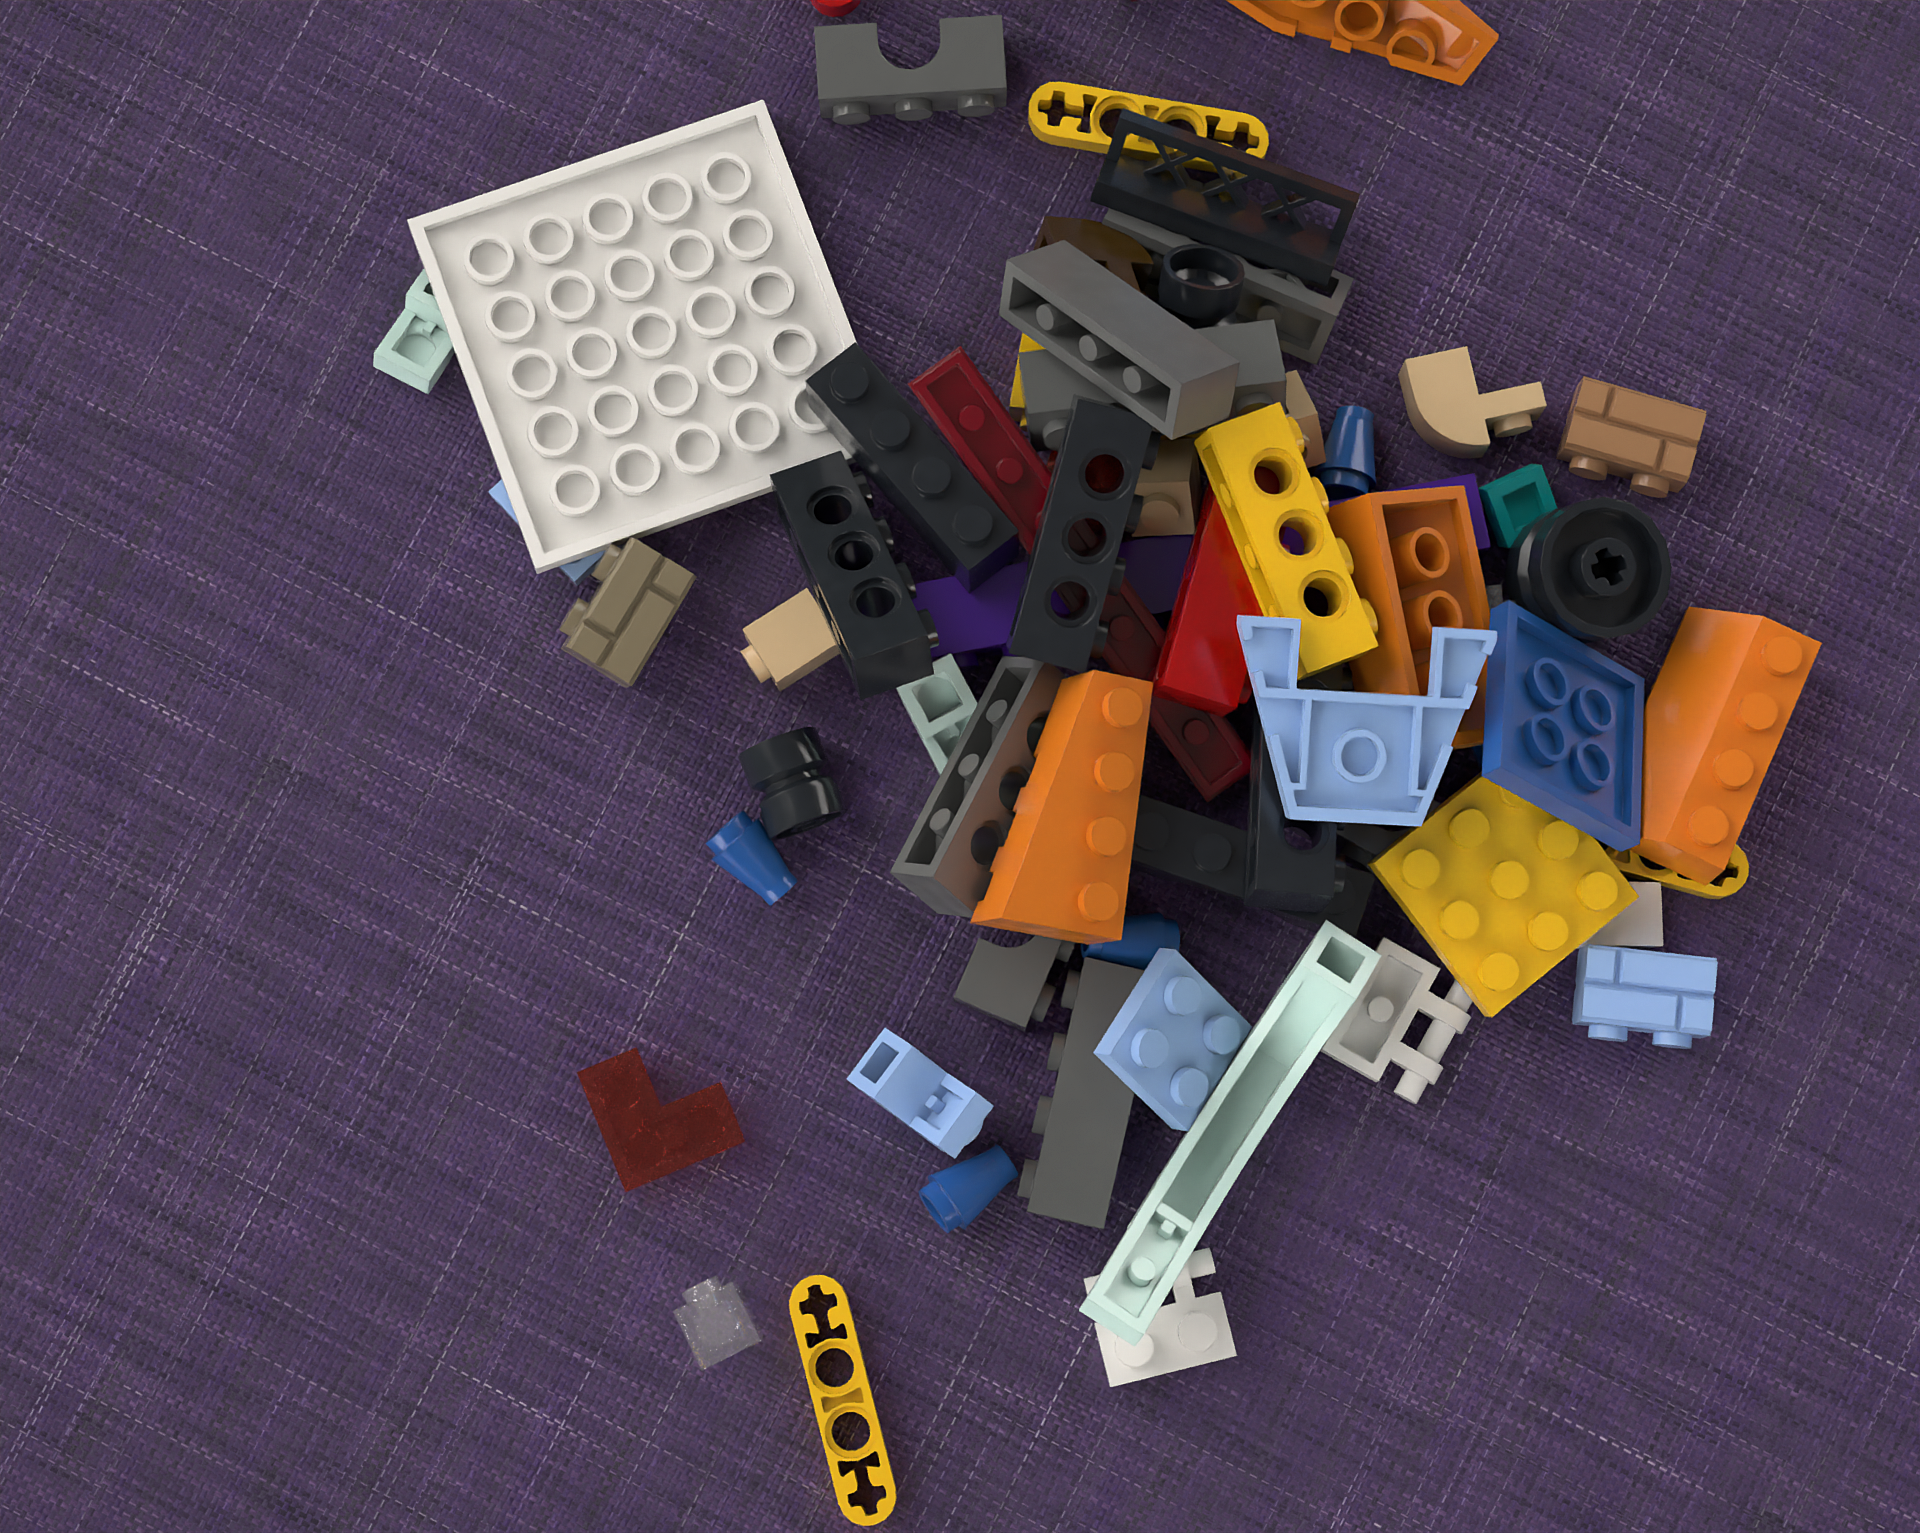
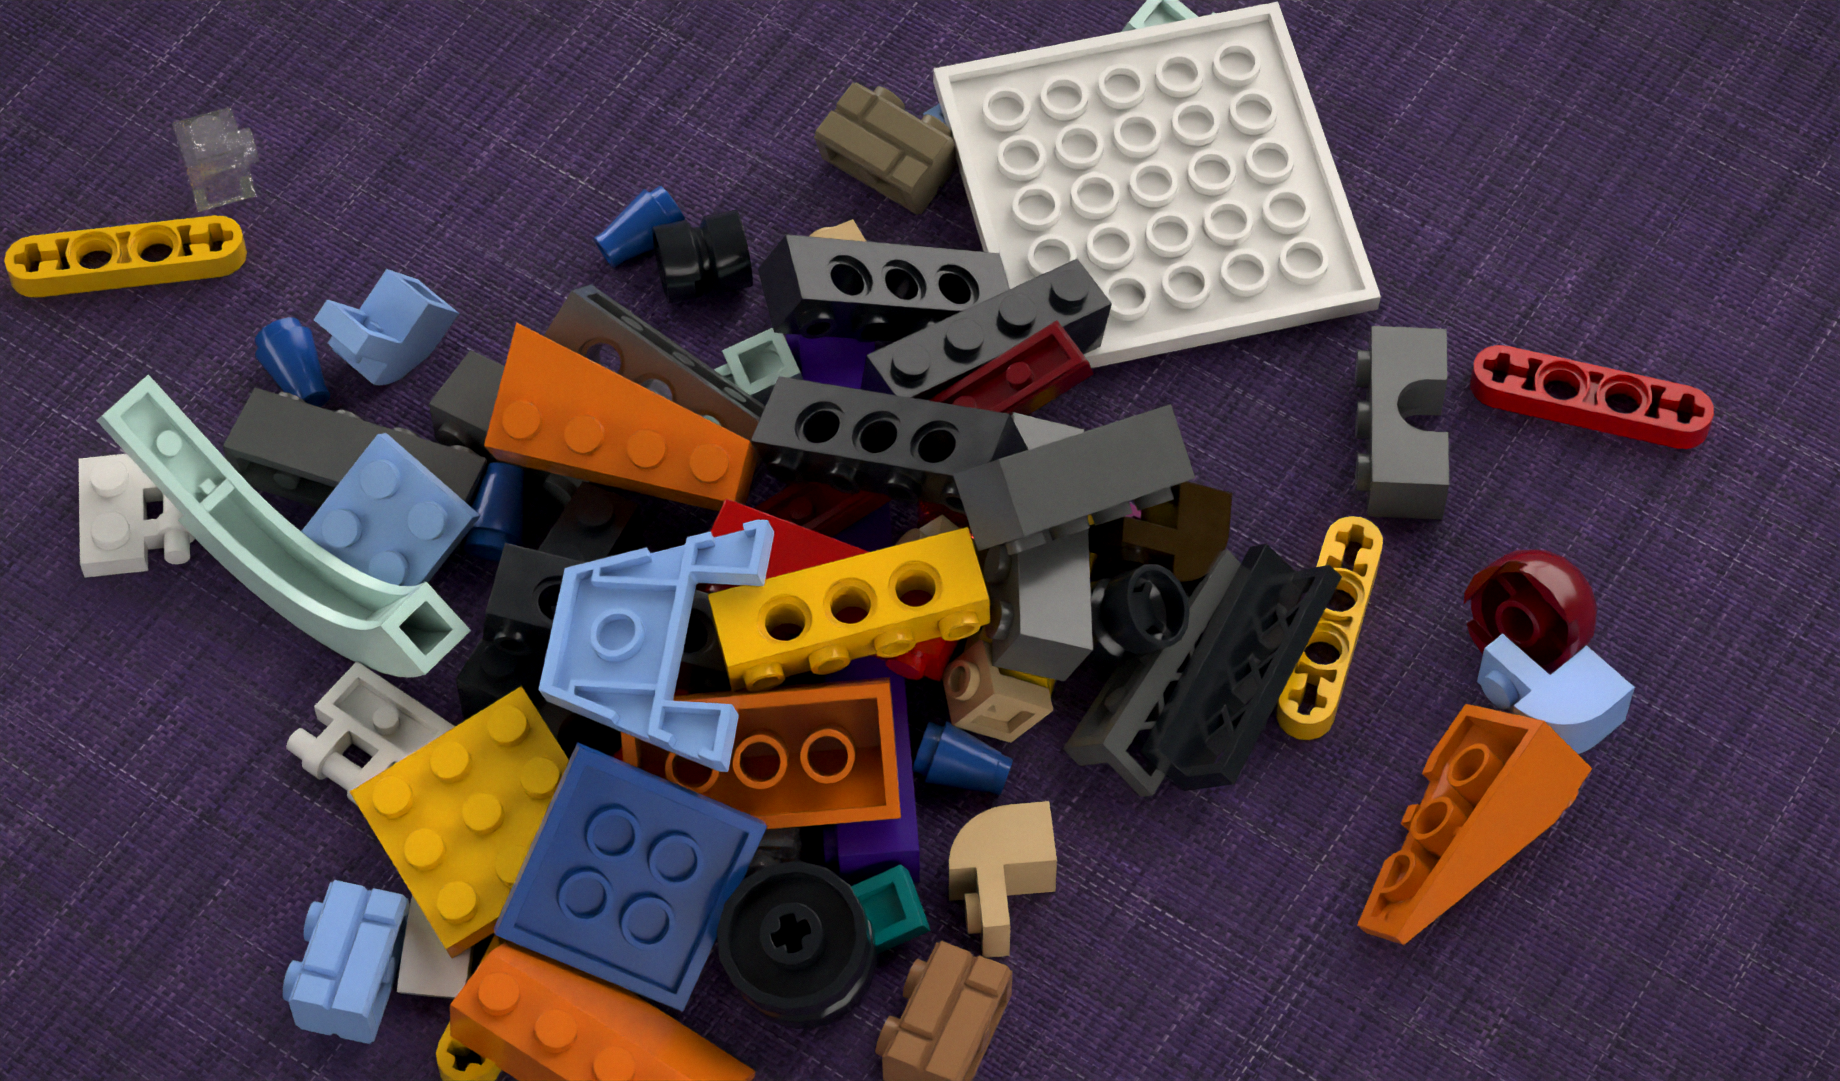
camera: 95 degrees right, 25 degrees down
(651, 1138) = (402, 126): clear red plate -> none

